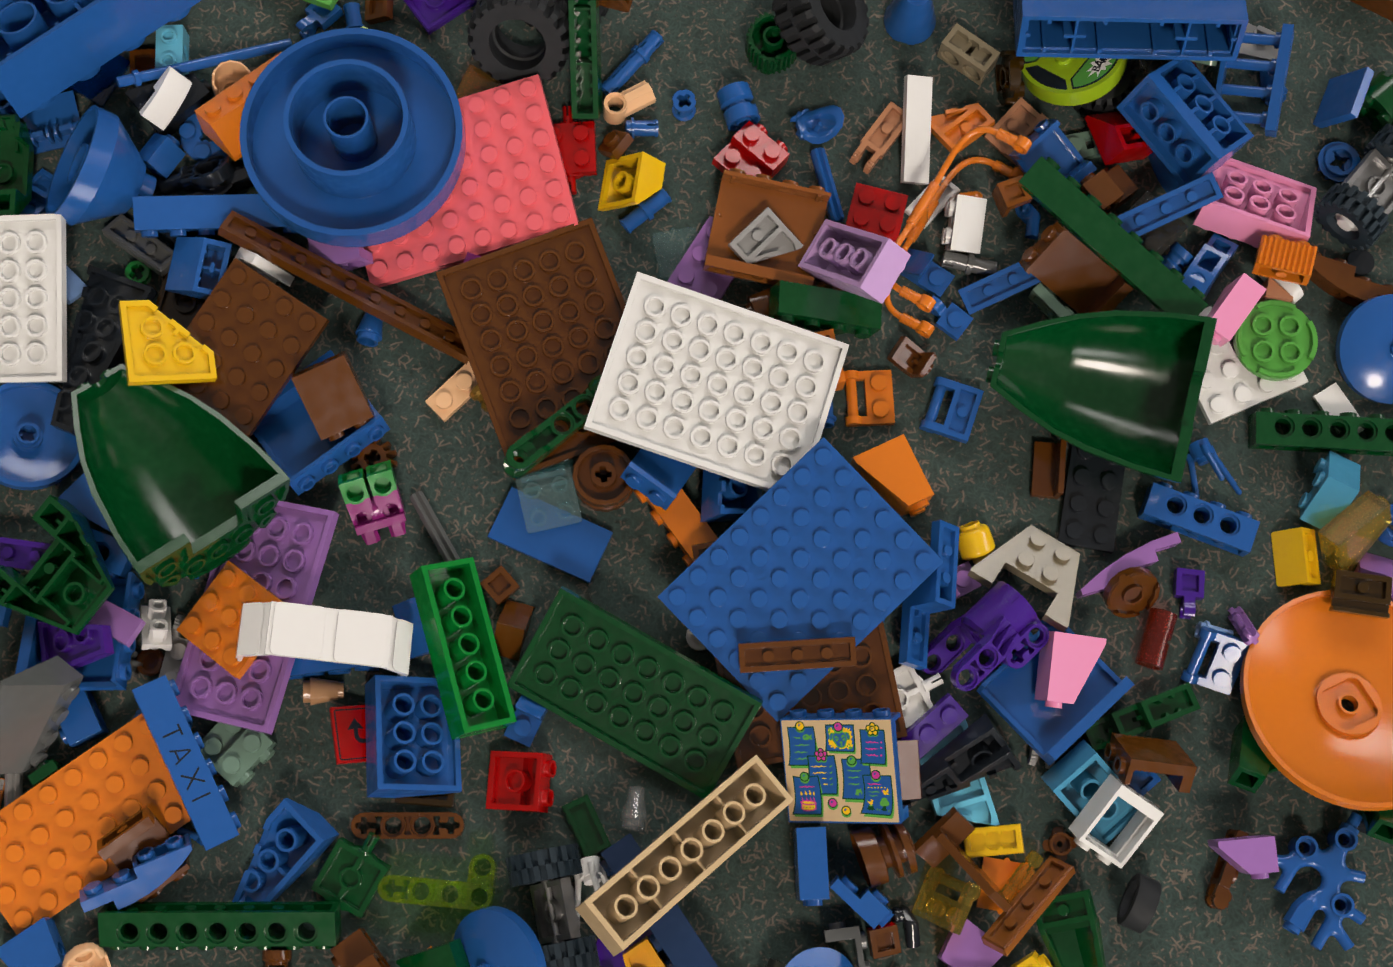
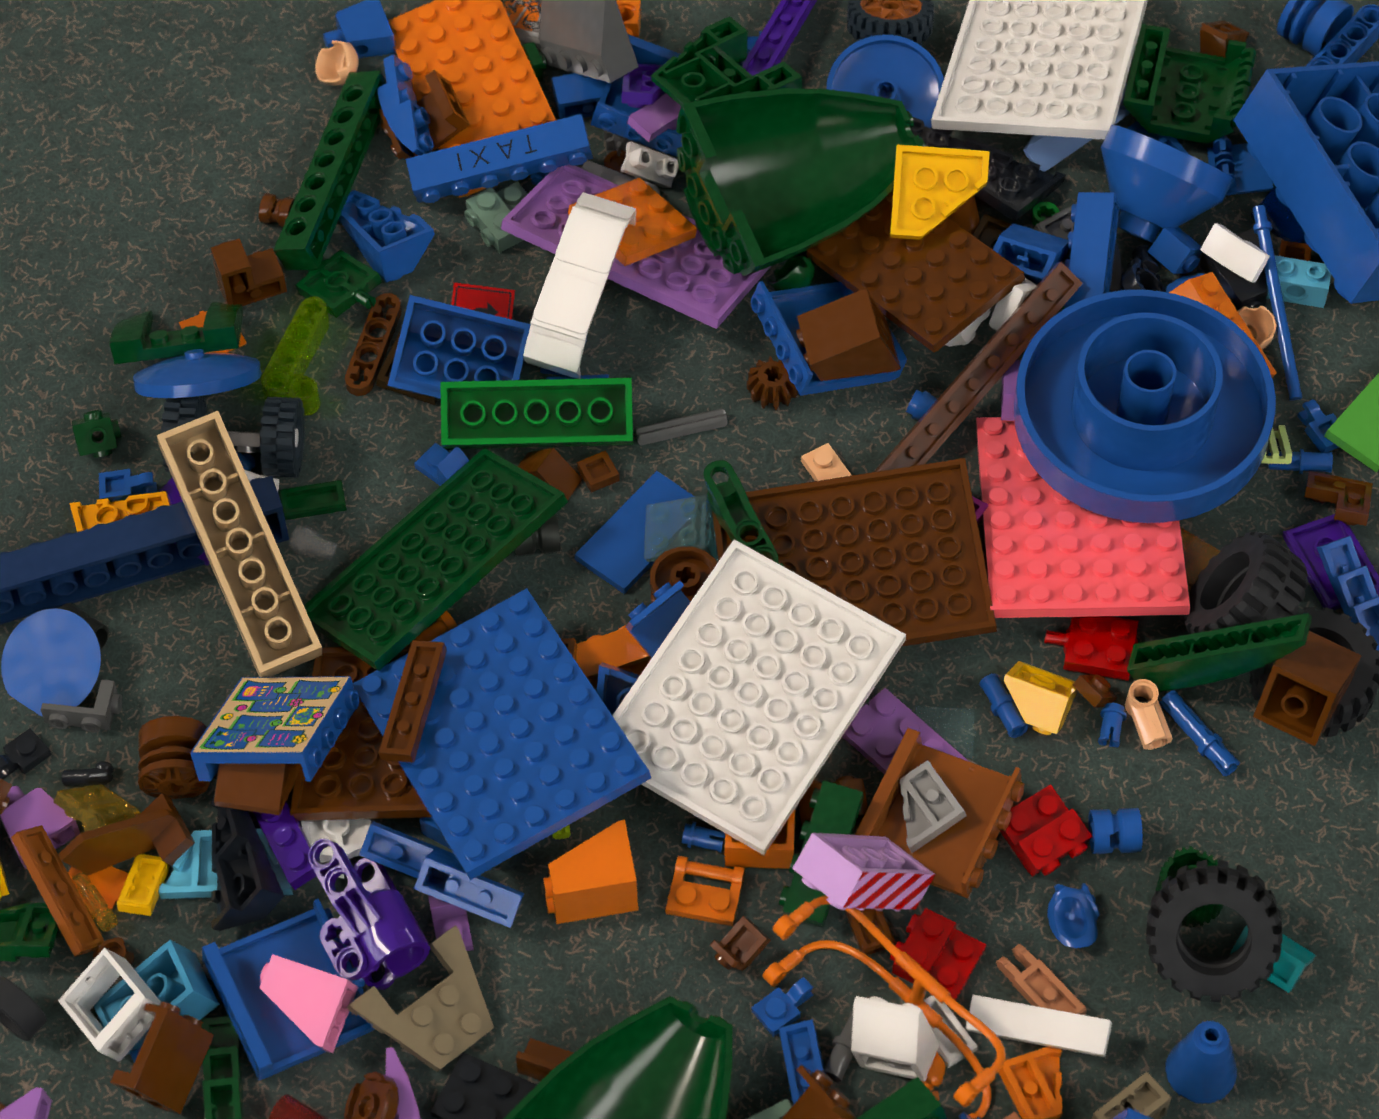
camera: 110 degrees right, 20 degrees down
(322, 690) = (533, 290): medium nougat cone -> none
(373, 512) = (723, 365): hips -> none
(520, 781) = (379, 446): red plate -> none
(681, 98) = (1130, 773): blue bush -> none
(811, 865) = (185, 682): blue brick -> none
(826, 181) = (992, 912): blue axle -> none
(868, 904) = (122, 719): blue plate -> none
(883, 940) = (82, 745): reddish brown plate -> none
(927, 274) = (838, 999): blue slope -> none
(960, 411) = (654, 983): blue plate -> none
(975, 541) = (493, 955): yellow head -> none

